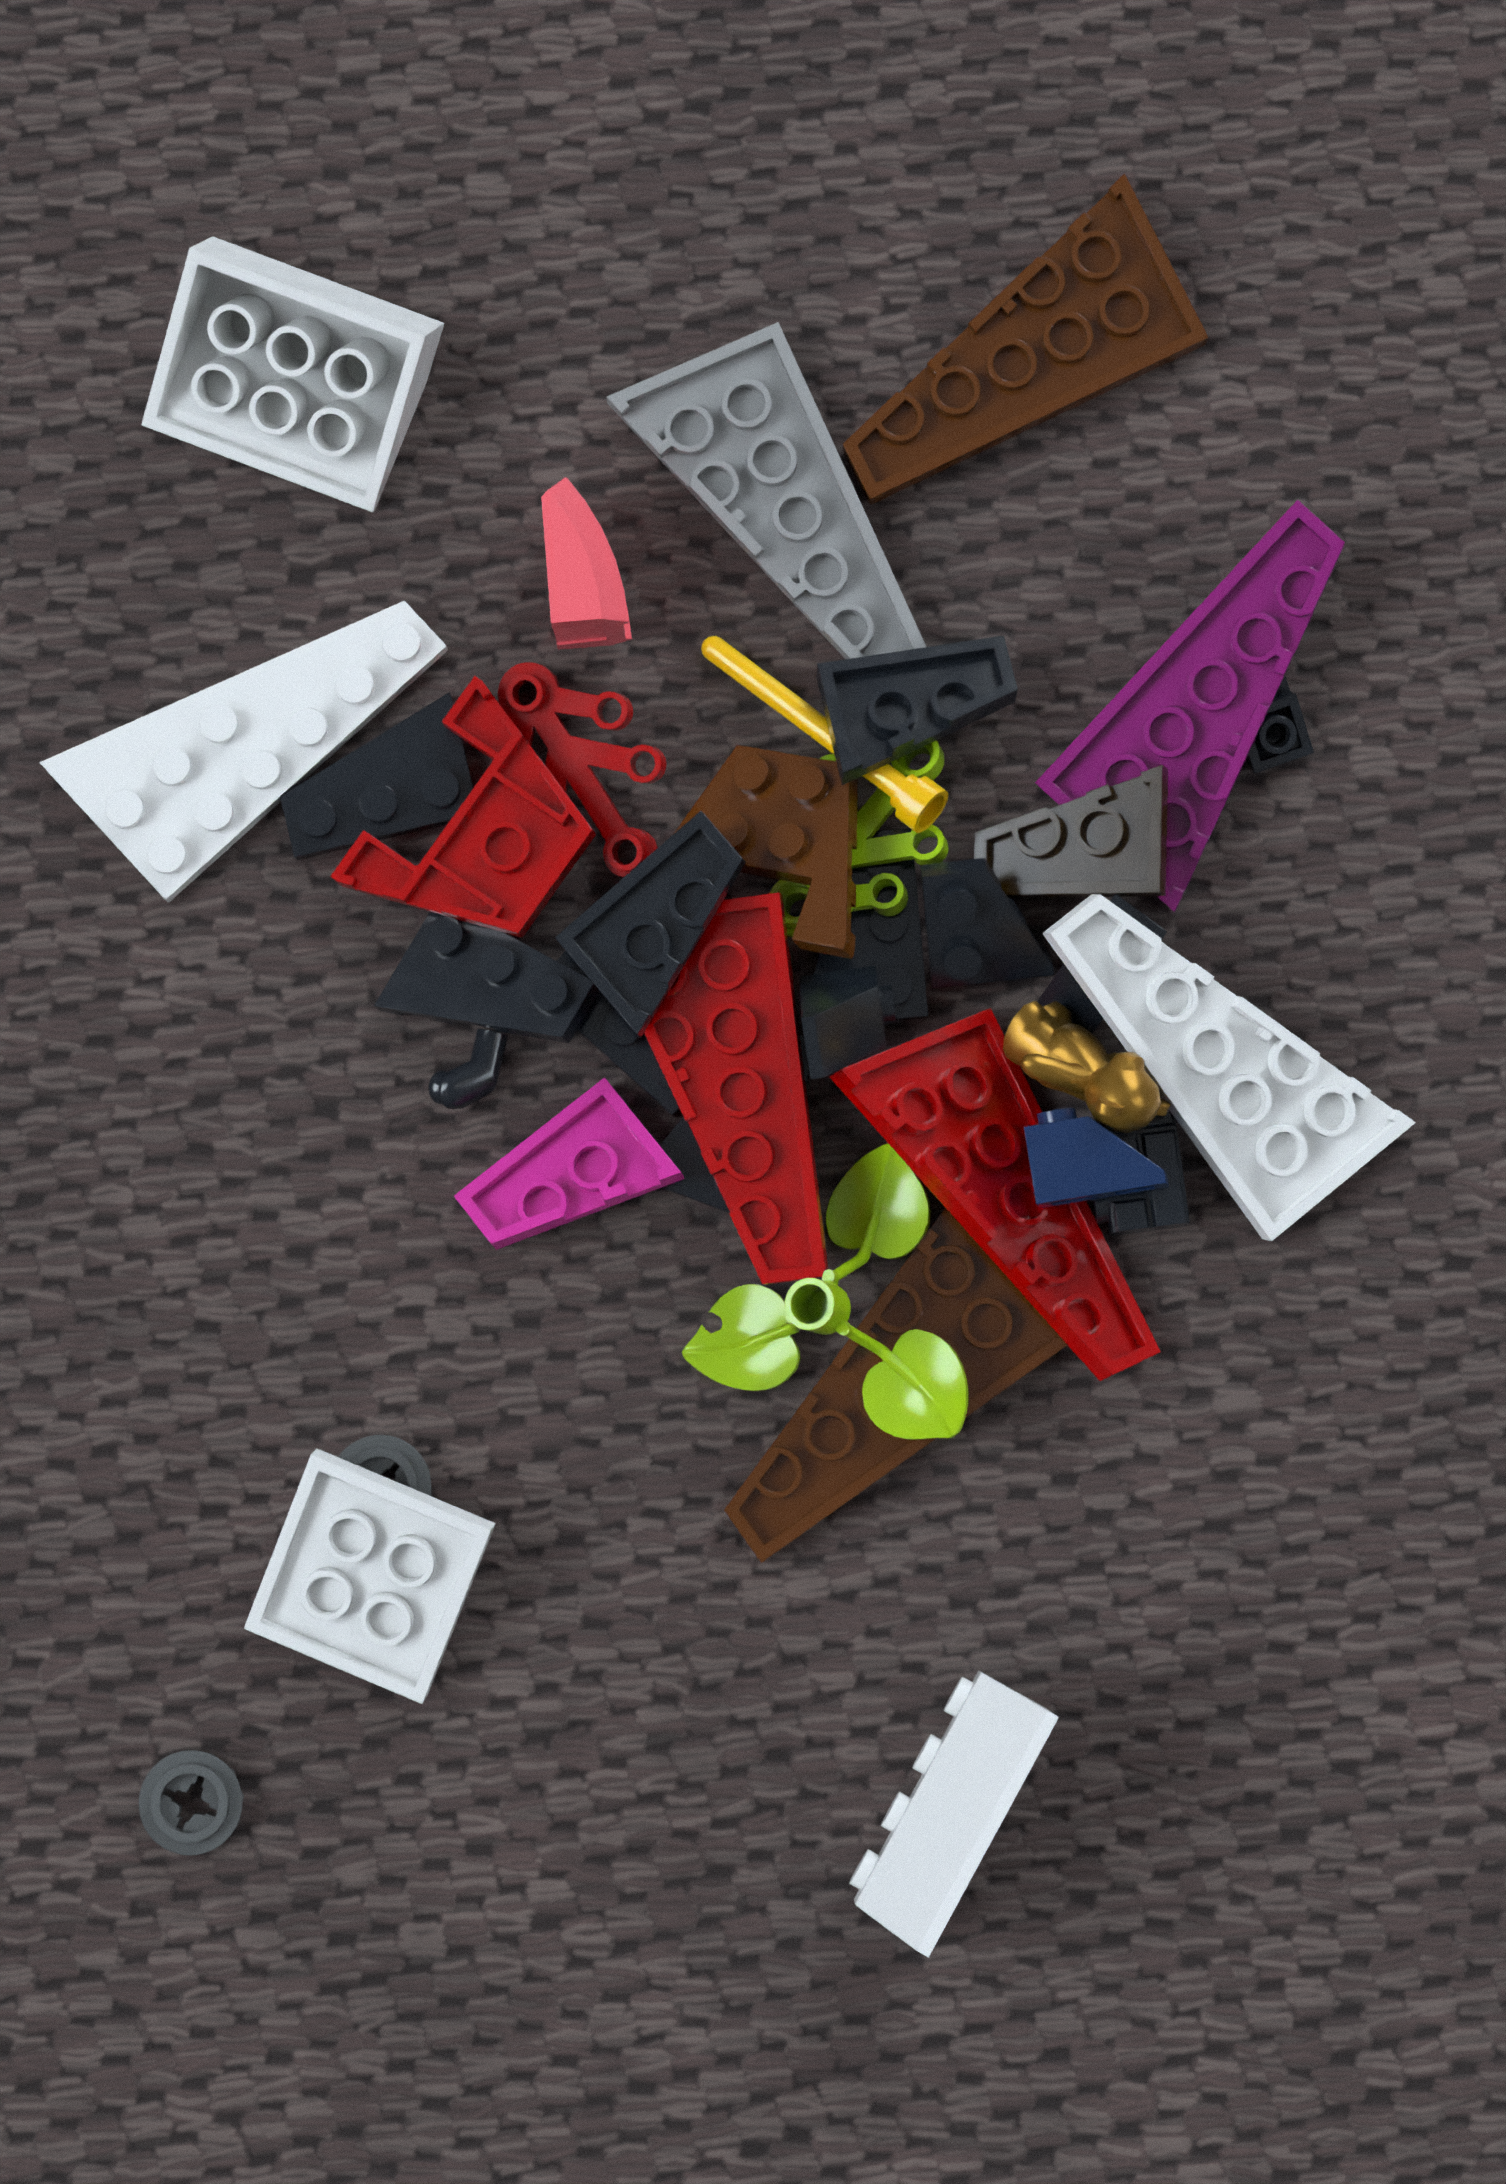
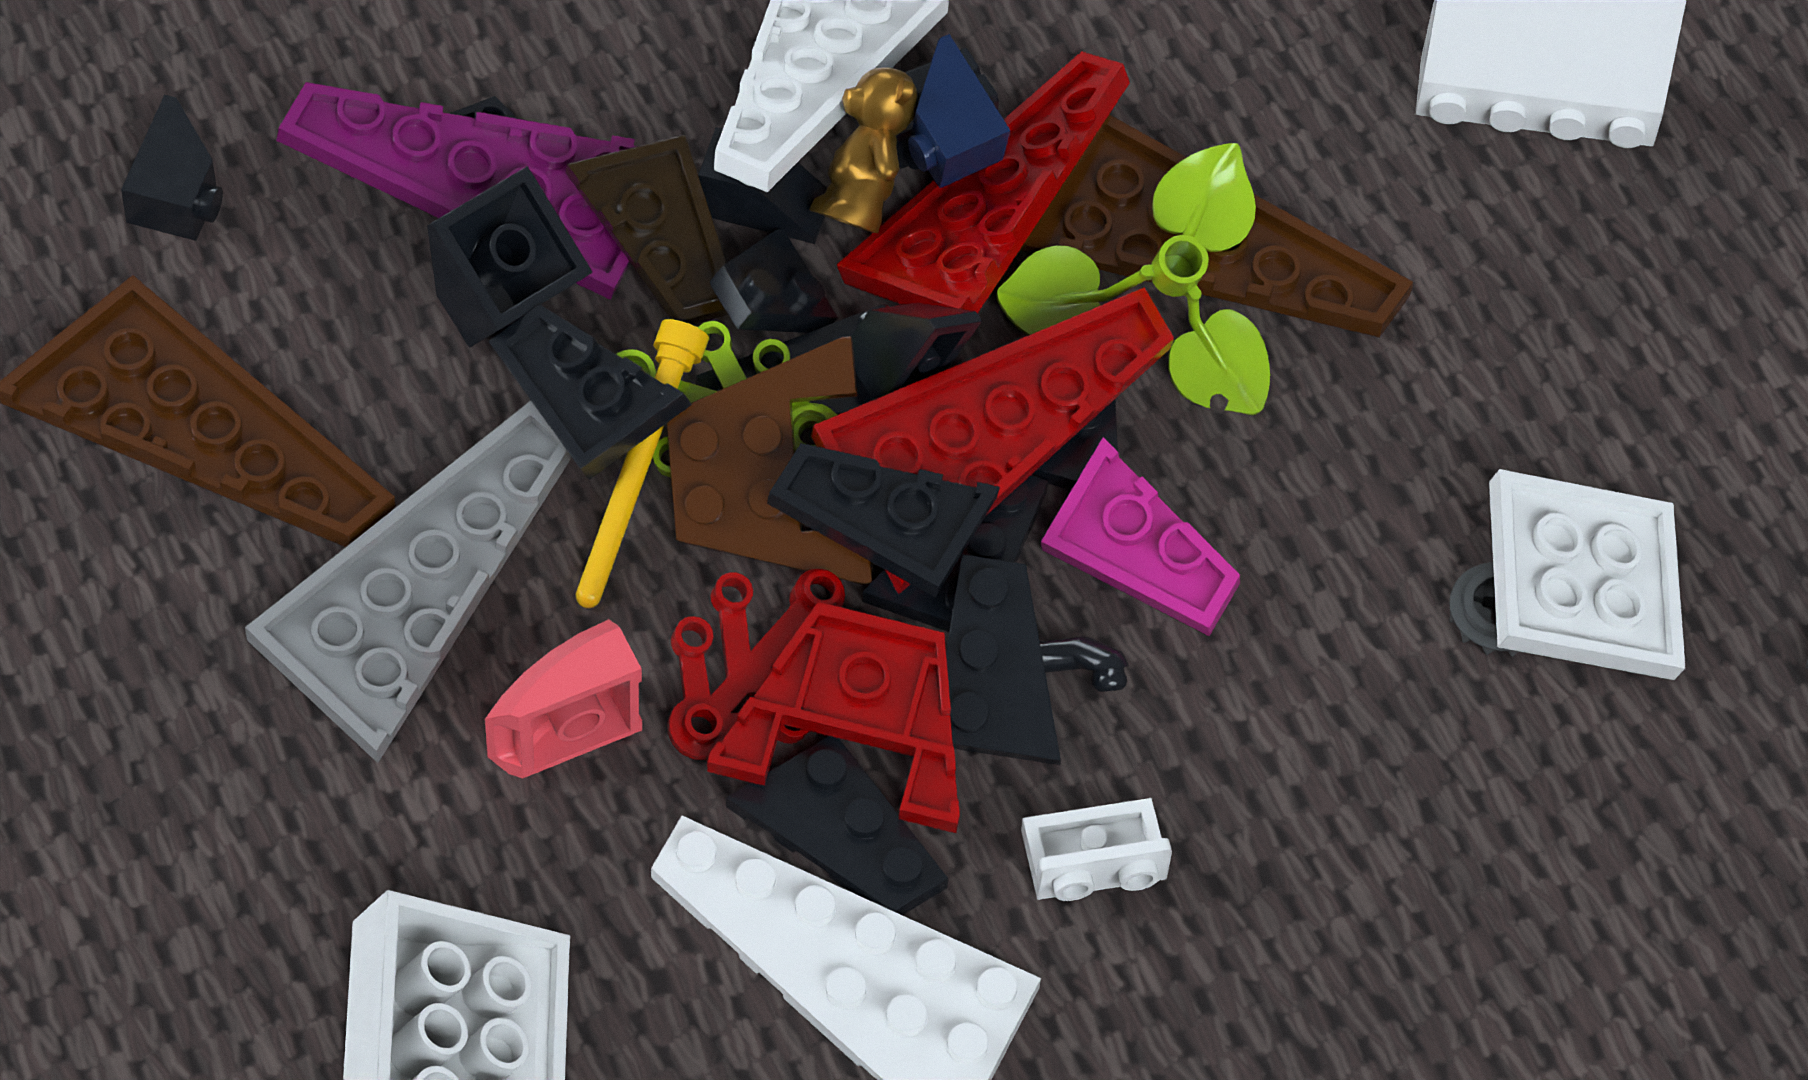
camera: 120 degrees left, 25 degrees down
(267, 997) = (1095, 850): none -> white bracket
(1082, 676) = (501, 256): none -> black slope
(1317, 411) = (172, 177): none -> black slope

